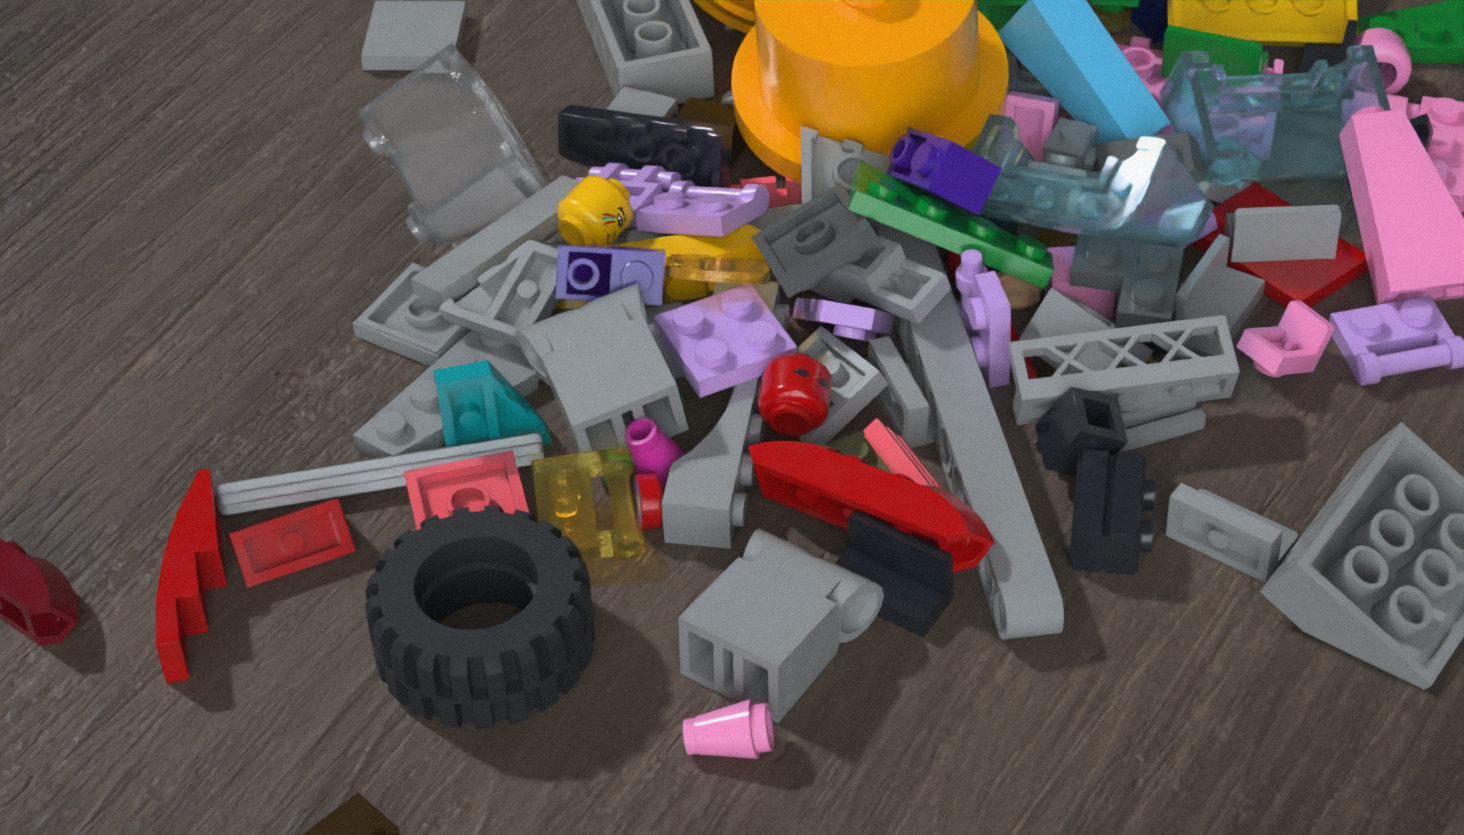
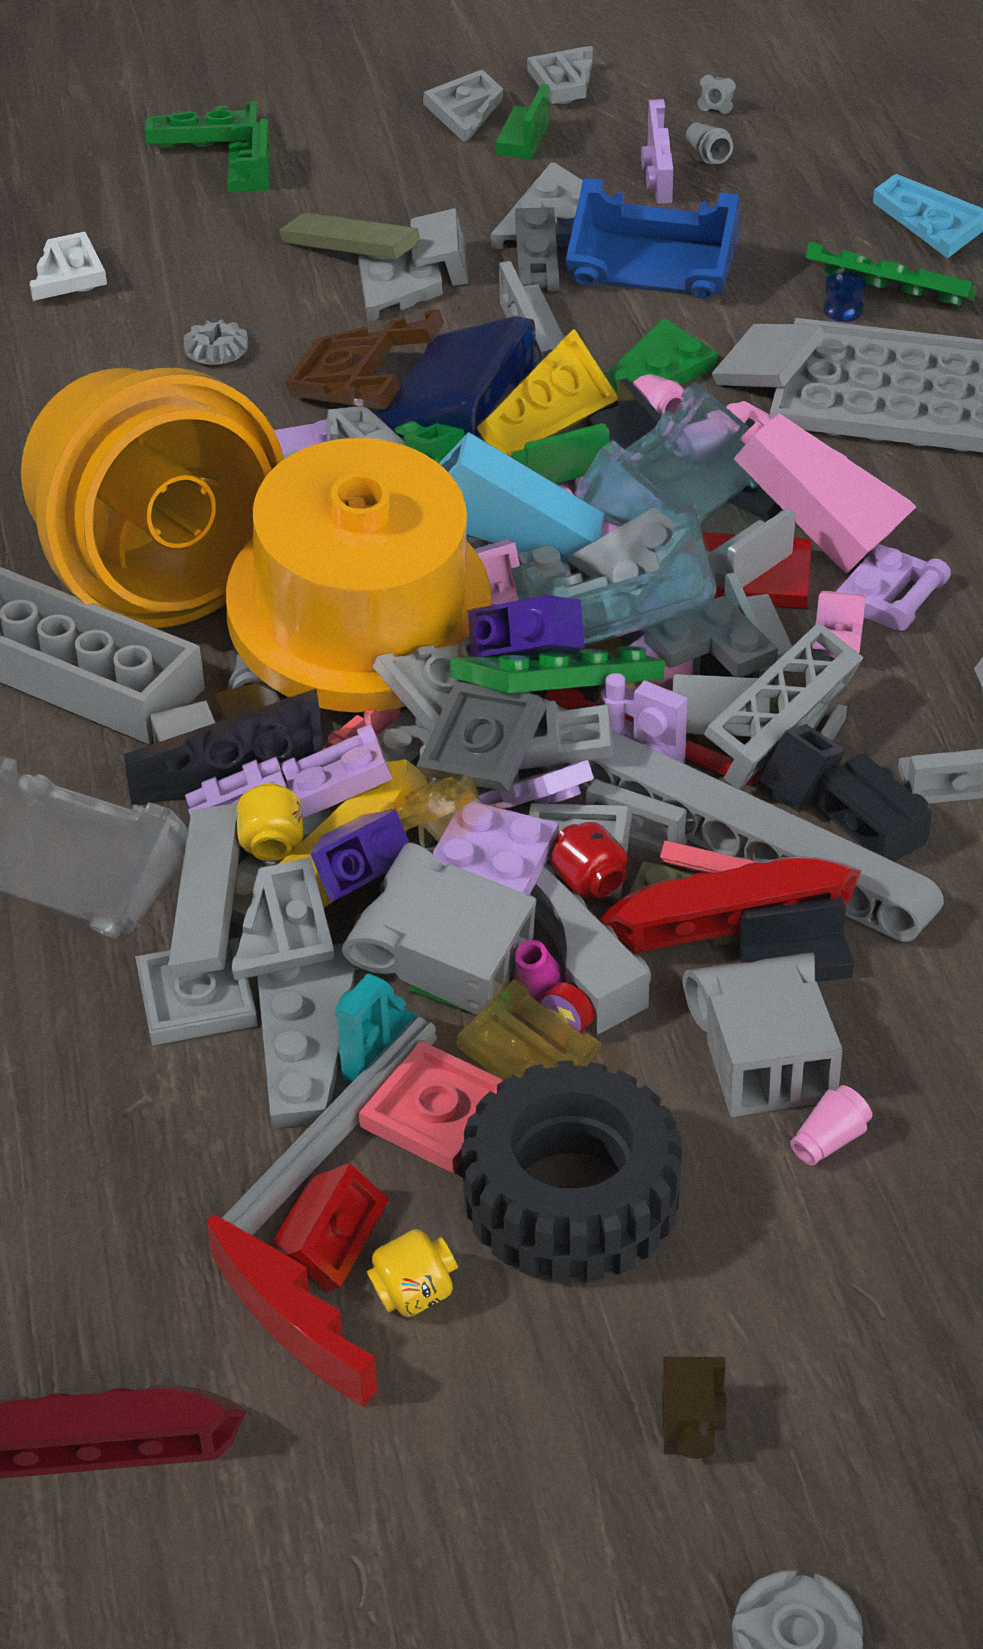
camera: 45 degrees left, 0 degrees up
(294, 610) = (412, 1272): none -> yellow head

